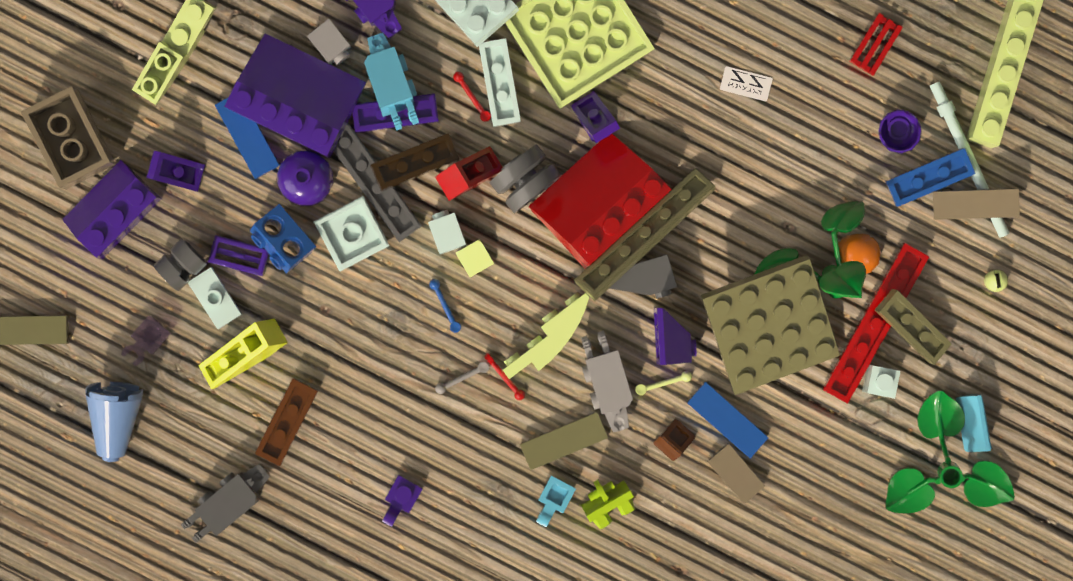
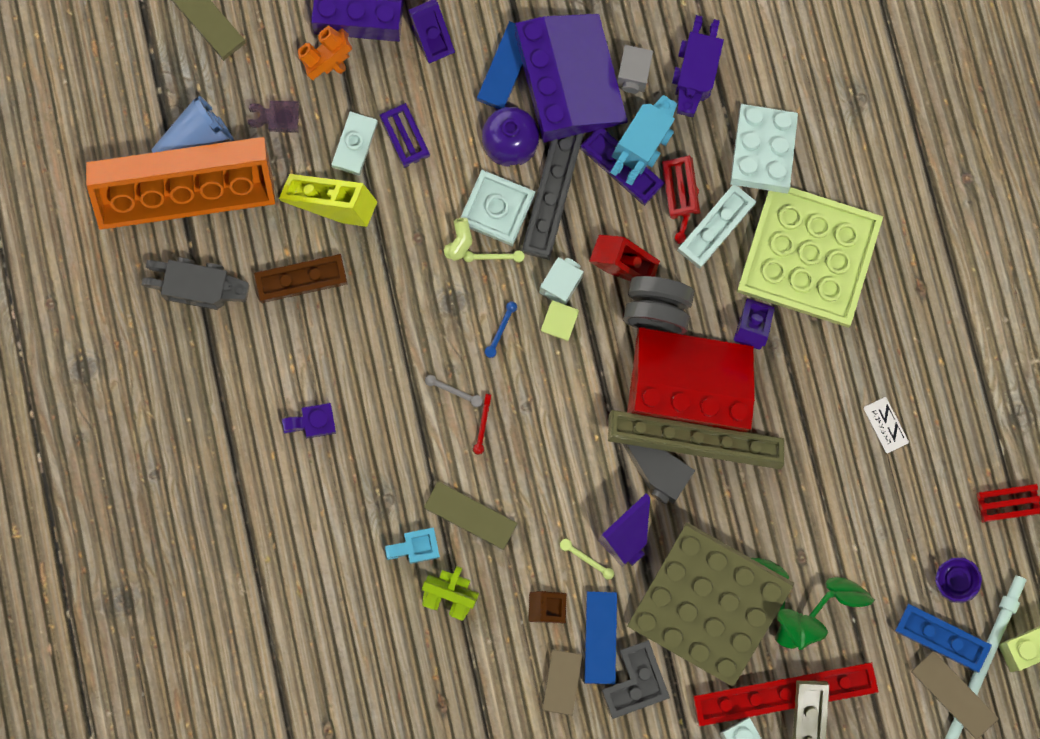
camera: 45 degrees right, 10 degrees down
(131, 265) = (328, 55): none -> orange hips
(143, 455) = (180, 183): none -> orange brick
(180, 264) = (359, 93): dark grey wheel -> none
(288, 235) = (453, 158): blue brick -> none
(357, 281) = (462, 242): none -> yellowish green arm
(371, 283) = (518, 256): none -> yellowish green hinge
(414, 162) = (595, 209): dark brown plate -> none
(472, 87) = (685, 210): none -> red tile
(558, 328) = (559, 436): yellowish green slope -> none
(609, 383) = (550, 511): light grey hinge -> none
(787, 418) = (645, 682): none -> dark grey plate
(860, 248) = (839, 633): orange hair -> none

